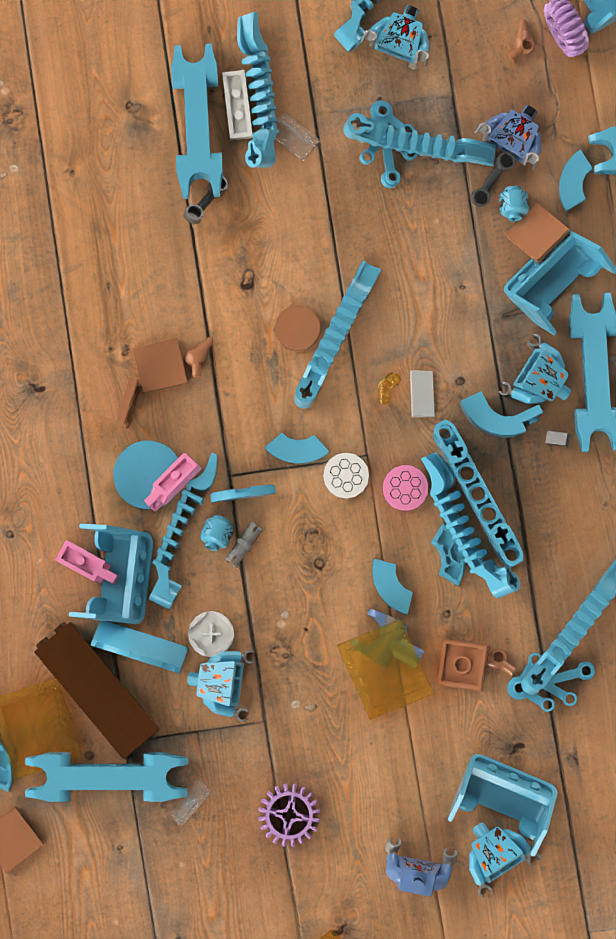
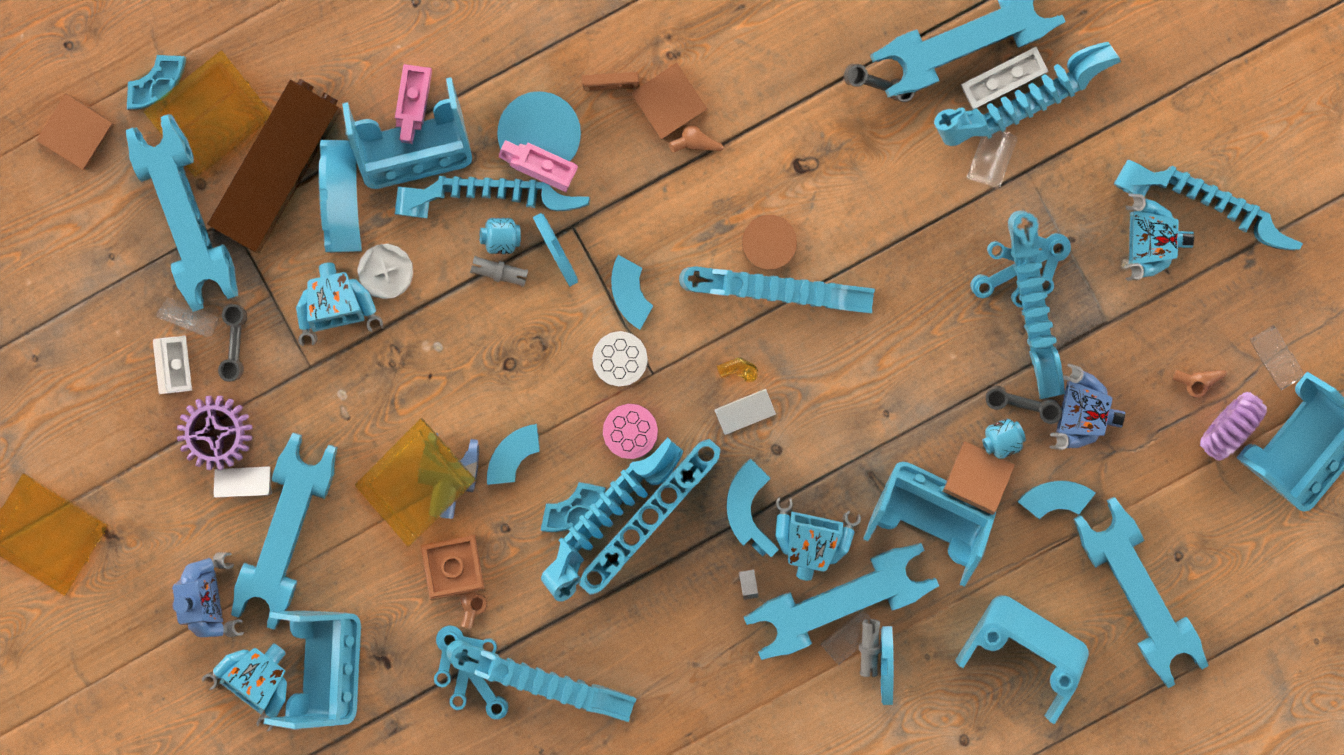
camera: 80 degrees right, 5 degrees up
(223, 830) = (172, 364): none -> white slope
(243, 783) = (232, 368): none -> dark grey bar
(335, 807) = (242, 482): none -> white slope
(419, 814) = (300, 484): none -> medium azure piece

